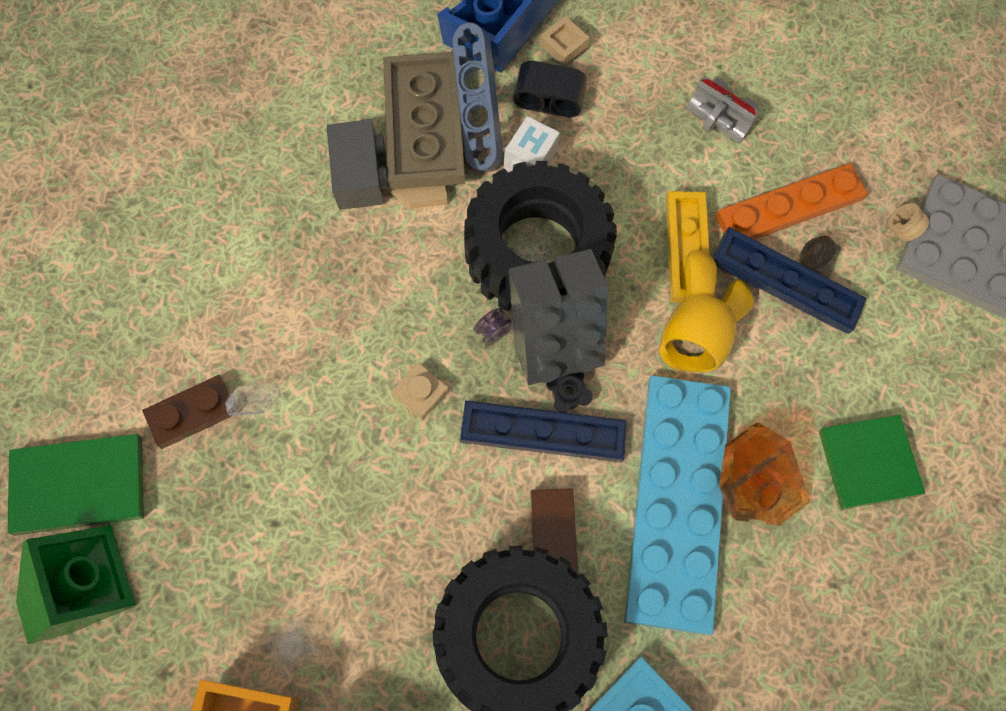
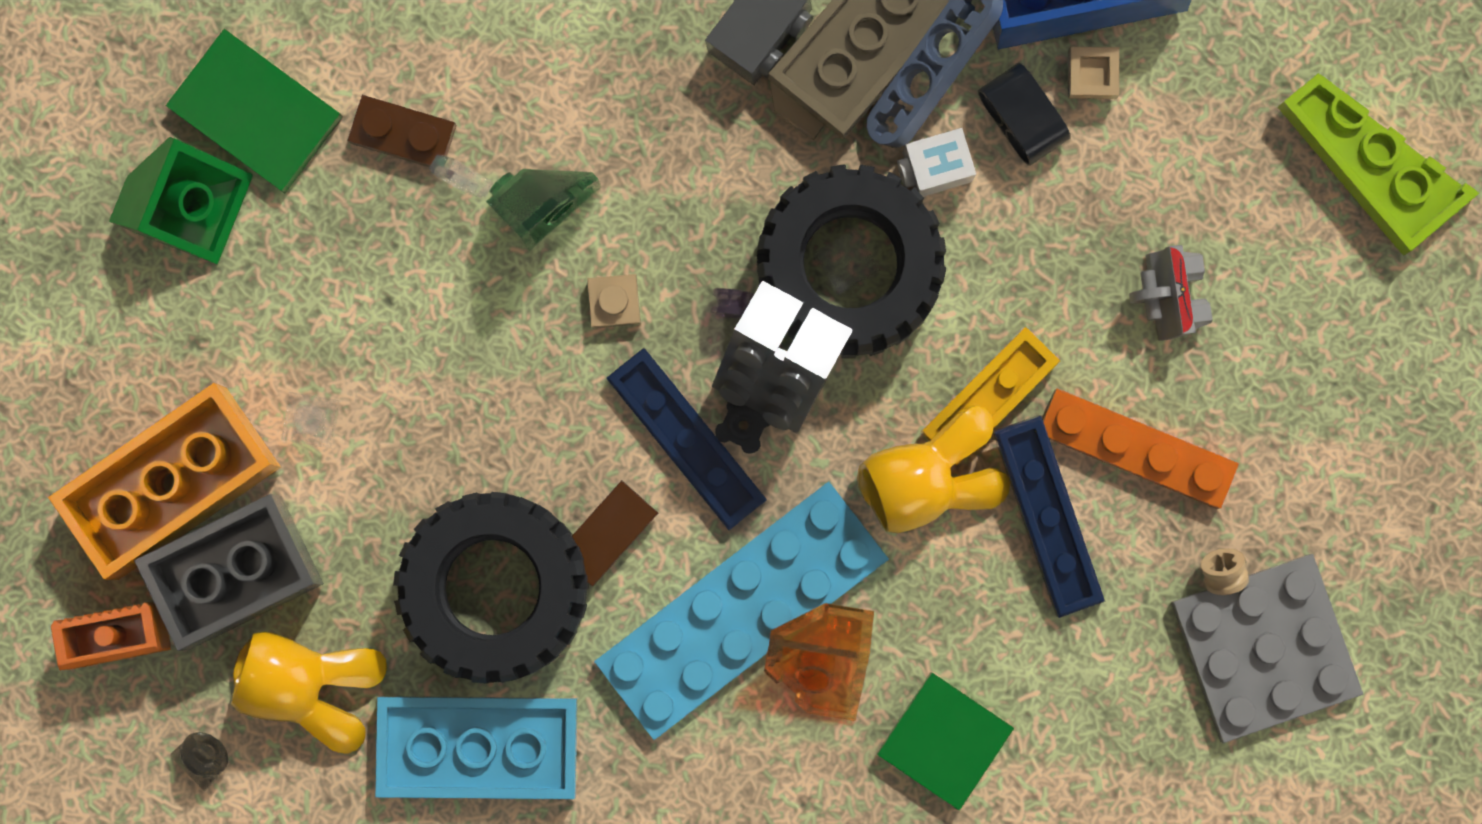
camera: 50 degrees right, 15 degrees up
(317, 371) = (539, 200): none -> clear green slope
(820, 255) = (1106, 523): clear smoke plate -> none

